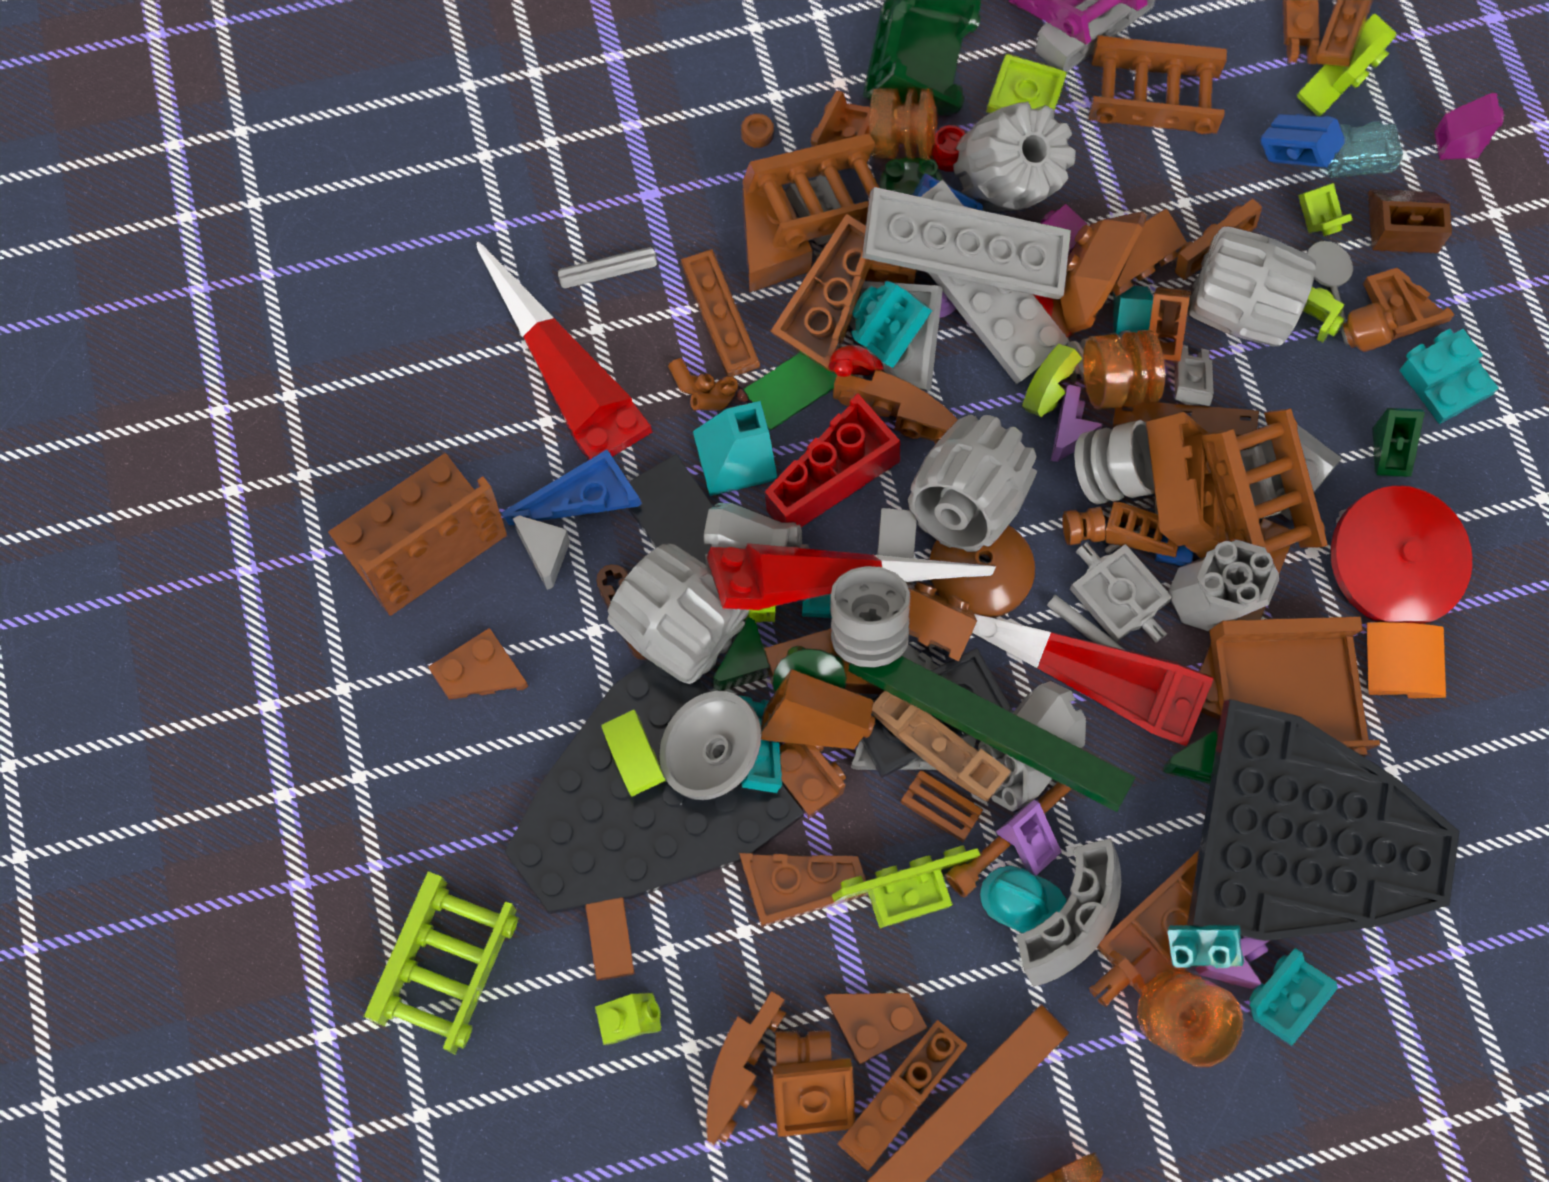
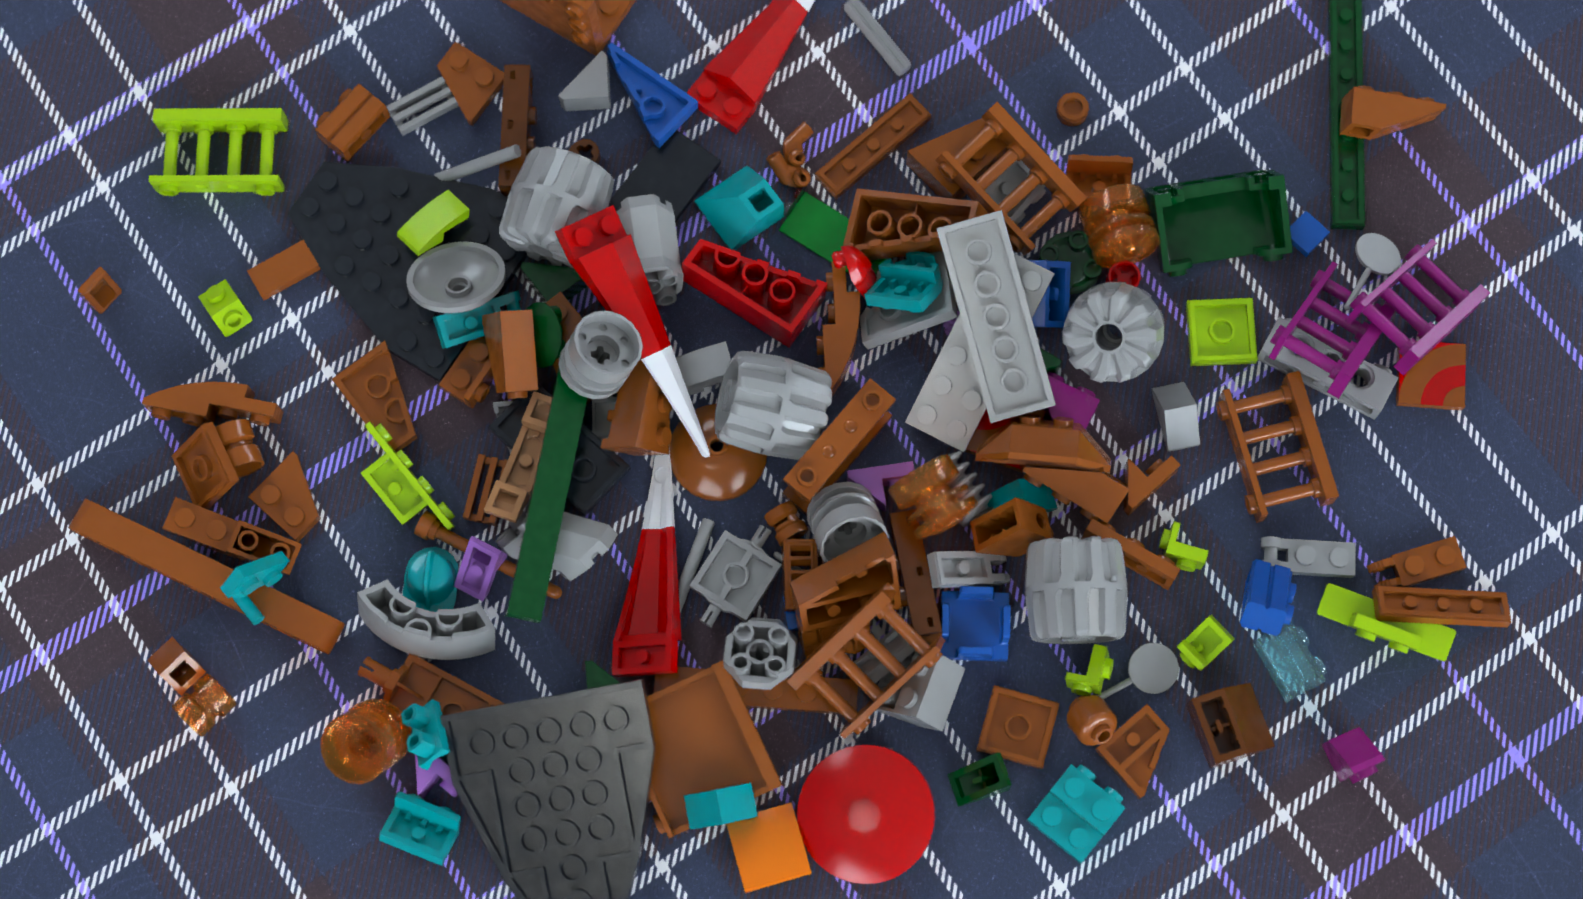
camera: 75 degrees right, 5 degrees up
(472, 804) = (351, 121): none -> dark orange brick
(481, 698) = (416, 96): none -> light grey tile
(546, 633) = (516, 121): none -> reddish brown piece
(552, 1155) = (99, 290): none -> dark orange slope
(584, 685) = (480, 163): none -> light grey bar
(977, 1079) = (249, 577): none -> teal plate
(1044, 388) = (905, 445): lime slope -> none
(1057, 459) = (839, 445): none -> dark orange fence
(1098, 153) = (1177, 416): none -> light grey slope
(1152, 194) = (1143, 487): none -> dark orange slope
(1221, 203) = (1185, 556): none -> lime bracket
(1246, 385) = (975, 624): none -> blue panel
(1266, 100) = (1312, 556): none -> light grey plate
(1350, 397) = (1018, 727): none -> dark orange tile
(1359, 687) = (720, 806): none -> teal slope

